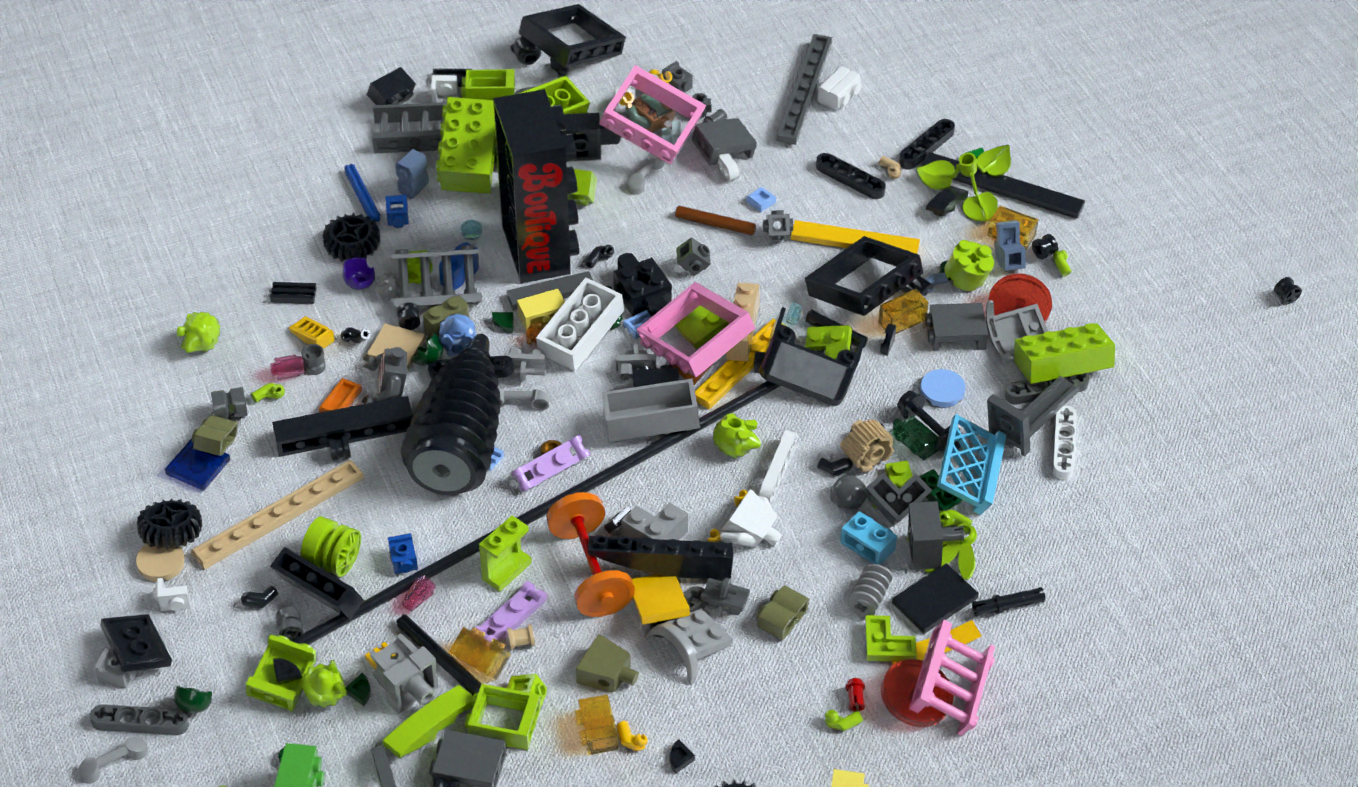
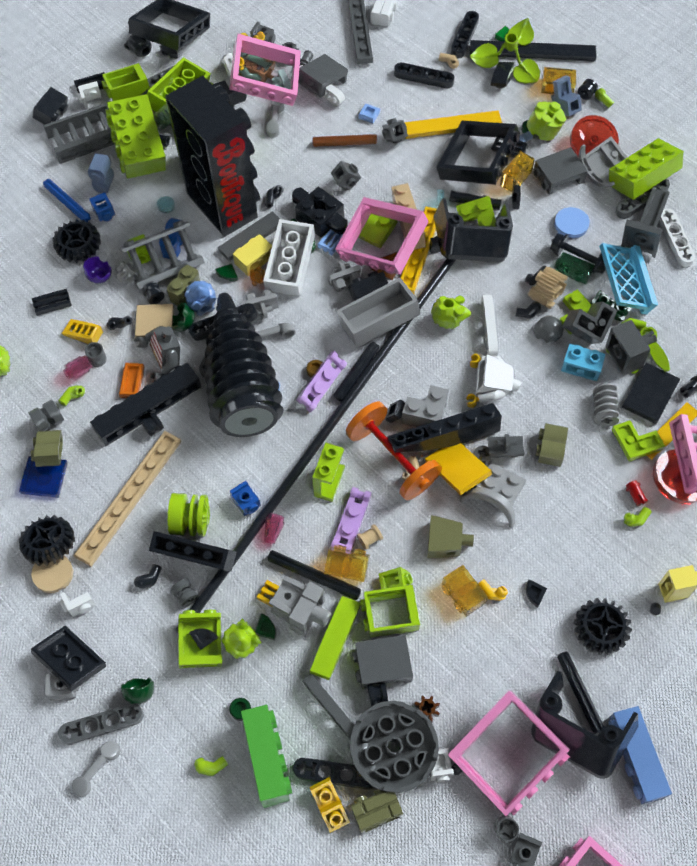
camera: 20 degrees left, 15 degrees up
(597, 466) = (356, 371): none -> black axle

